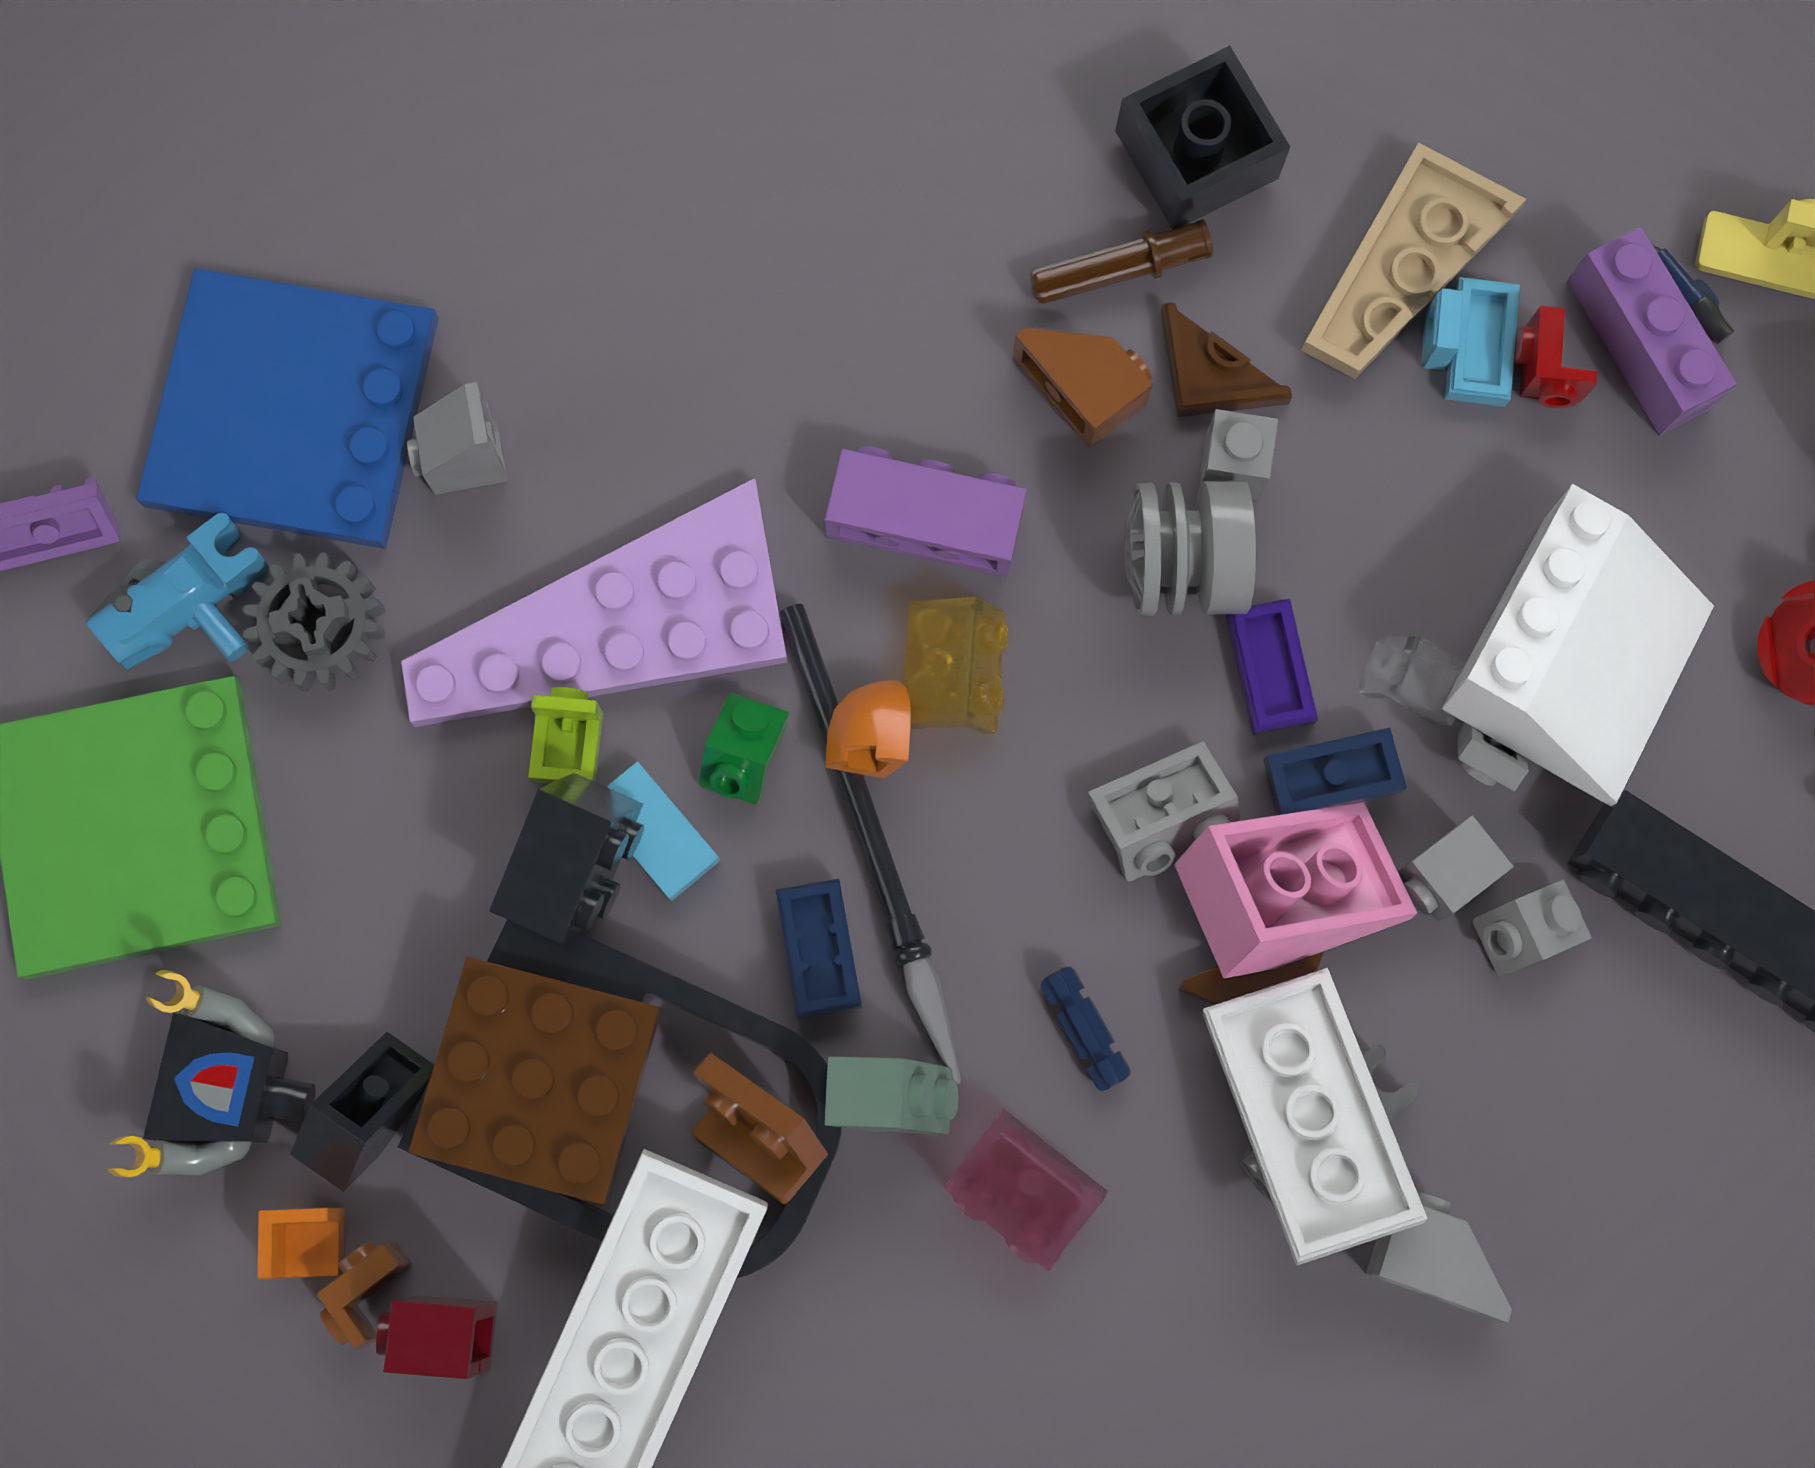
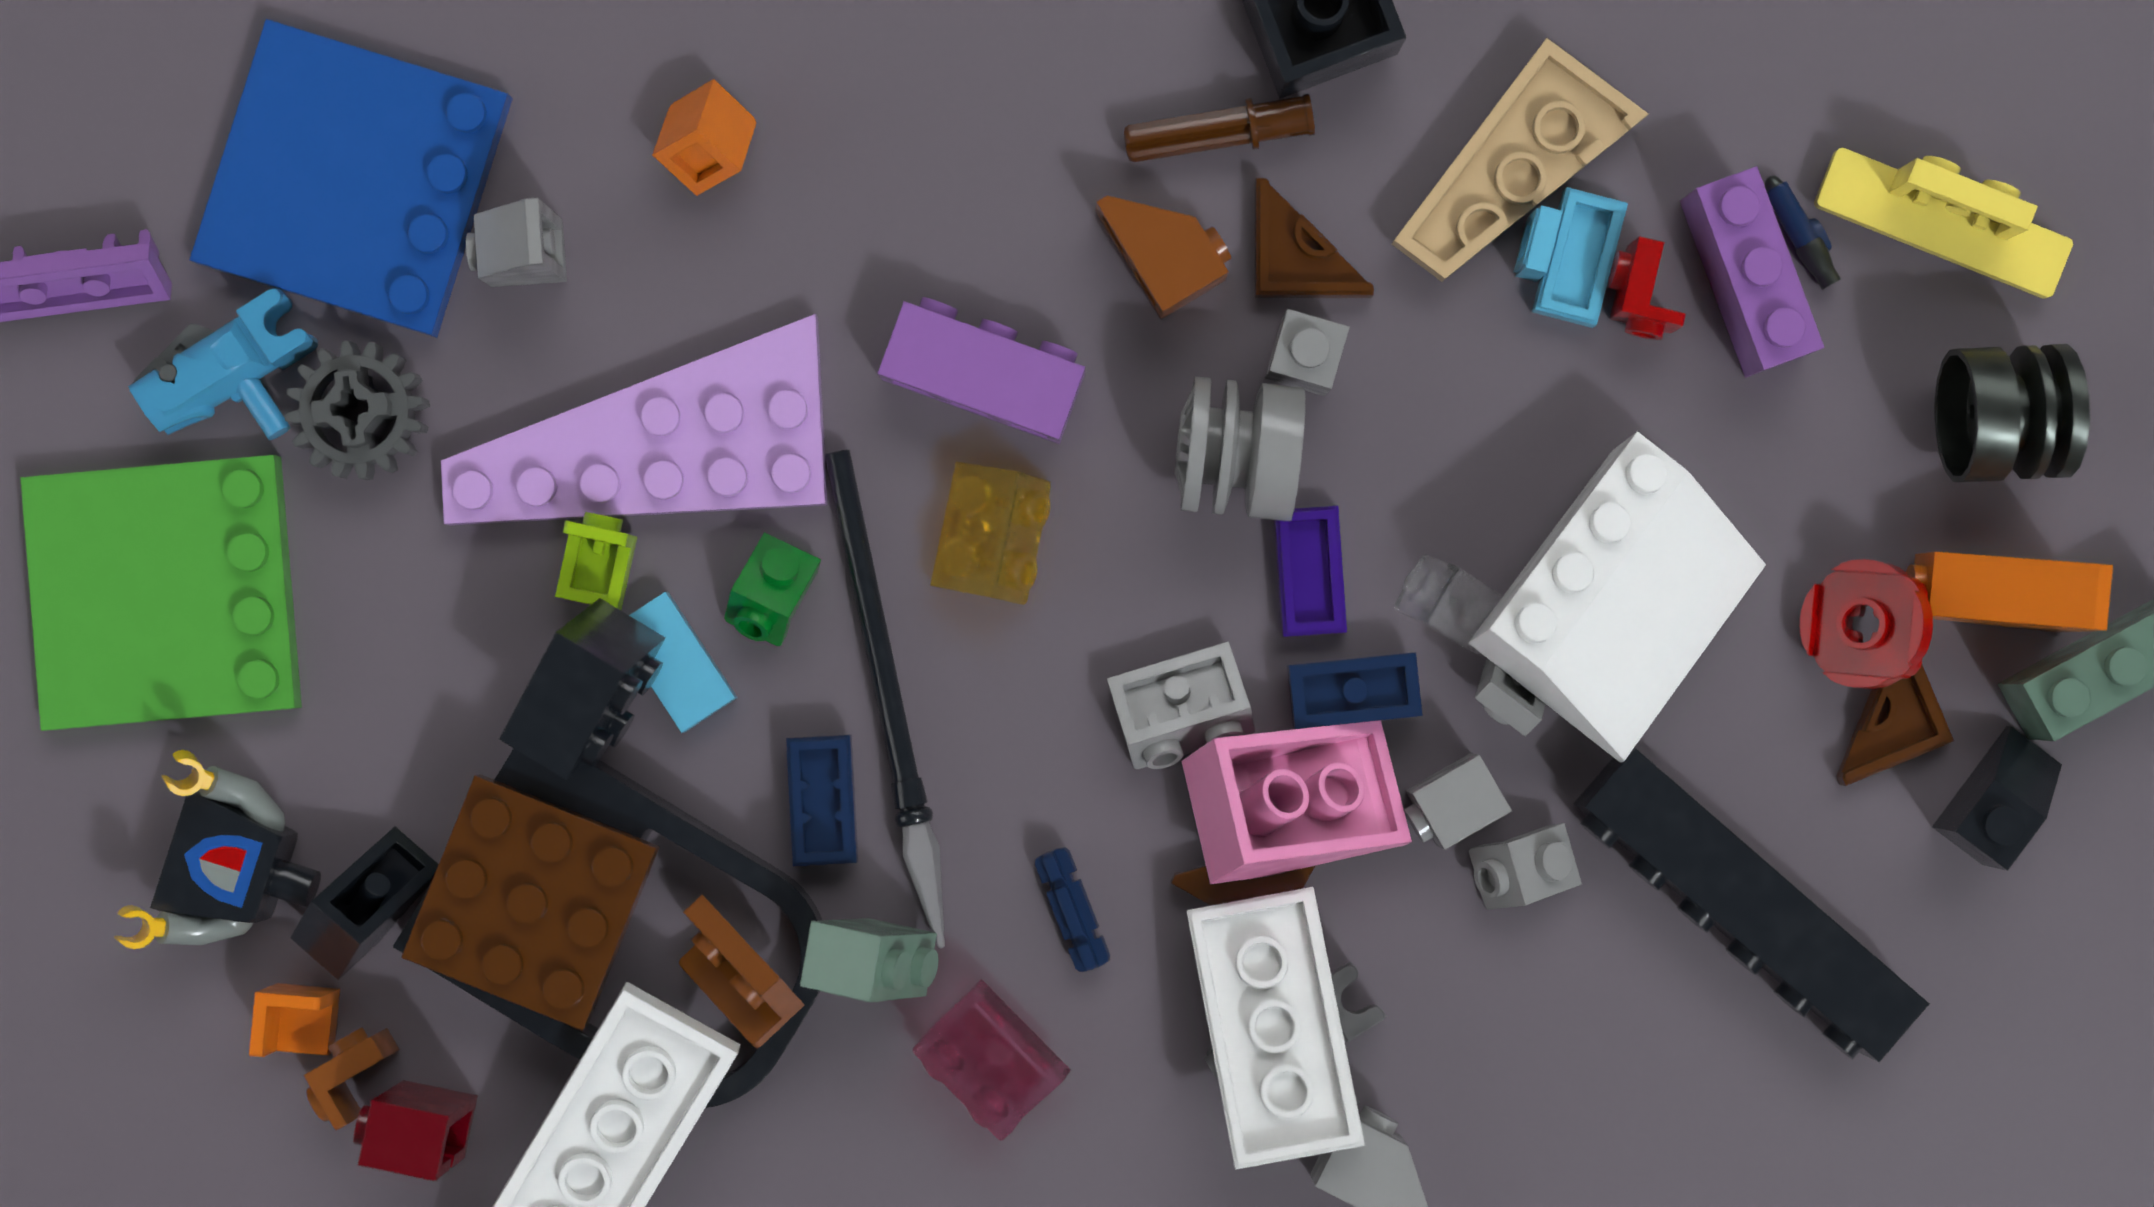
camera: 10 degrees right, 10 degrees up
(629, 327) = (705, 137): none -> orange panel
(870, 730) = (898, 589): orange brick -> none

